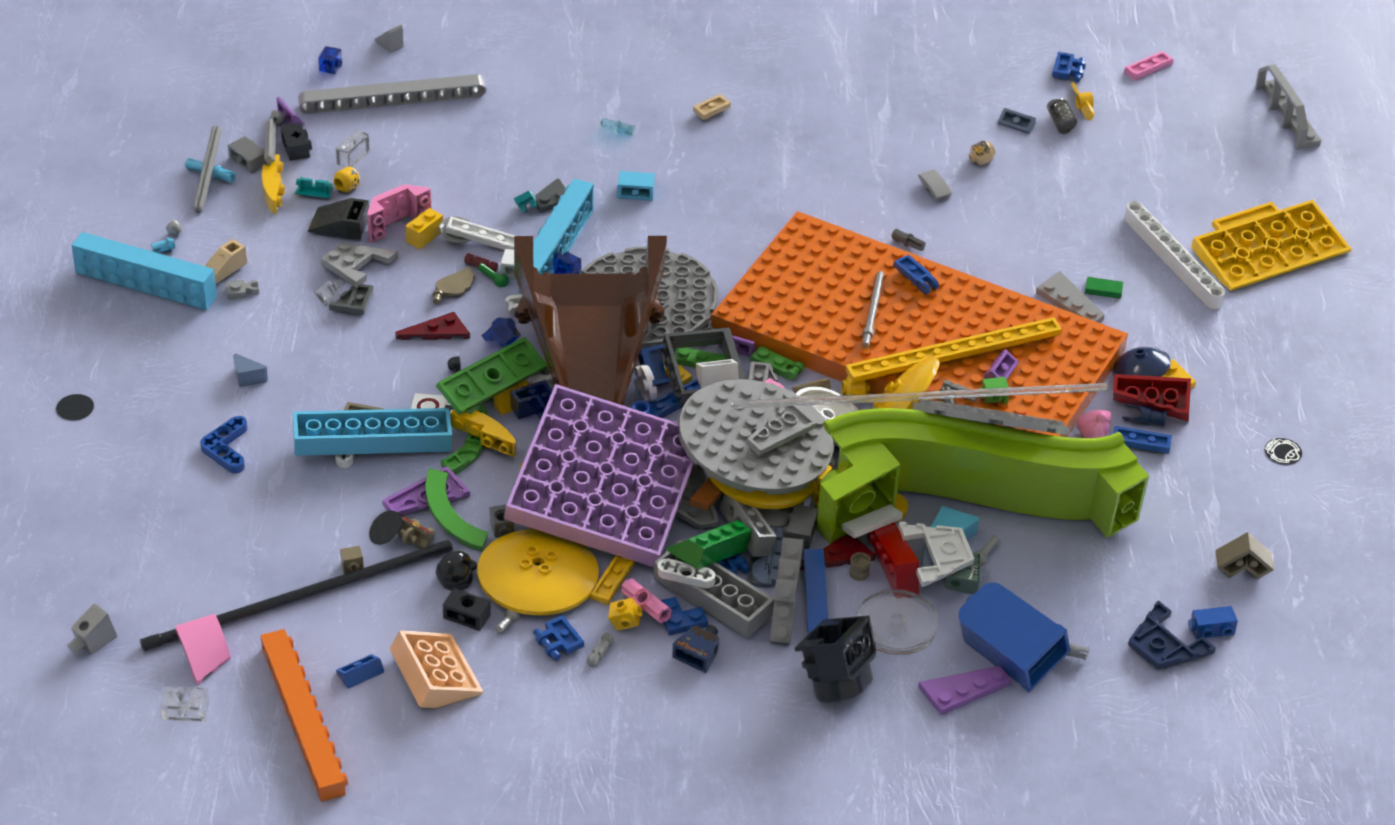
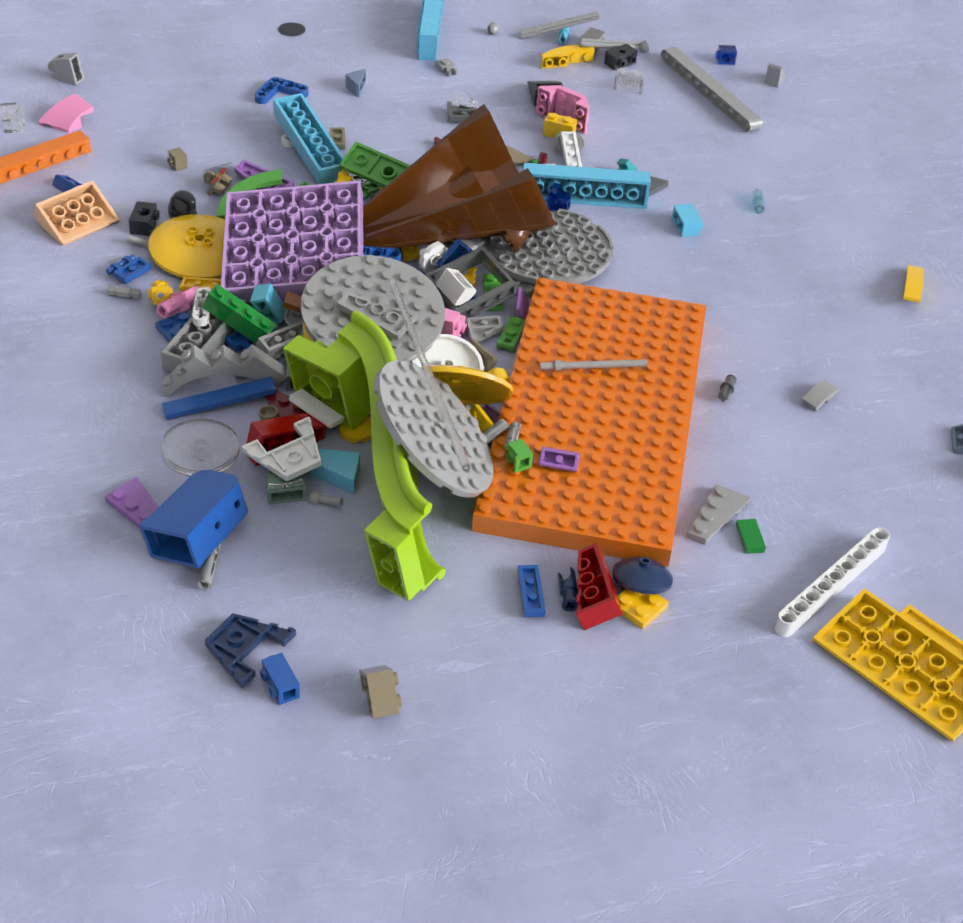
camera: 70 degrees right, 0 degrees up
(164, 245) = (473, 29): medium azure pin -> none
(227, 259) = (467, 51): tan slope -> none
(290, 115) = (652, 50): medium lavender slope -> none
(320, 189) = (574, 74): teal hinge -> none
(346, 179) = (592, 84): yellow head -> none
(349, 258) = (504, 102): light grey wing -> none
(434, 550) = (205, 195): black piece -> none
(689, 522) = (268, 302): none -> medium azure brick
(697, 647) = (137, 340): dark blue torso -> none
(711, 107) = (823, 245): tan plate -> none
(800, 71) = (913, 283): none -> yellow slope
(839, 657) = (129, 409): black brick -> none
(916, 274) = (658, 383): blue hinge -> none
(954, 349) = (568, 425): yellow plate -> none
(982, 153) = (888, 417): tan head -> none
(1094, 423) = (525, 548): bright pink piece -> none
(1283, 451) = (578, 716): sticker -> none

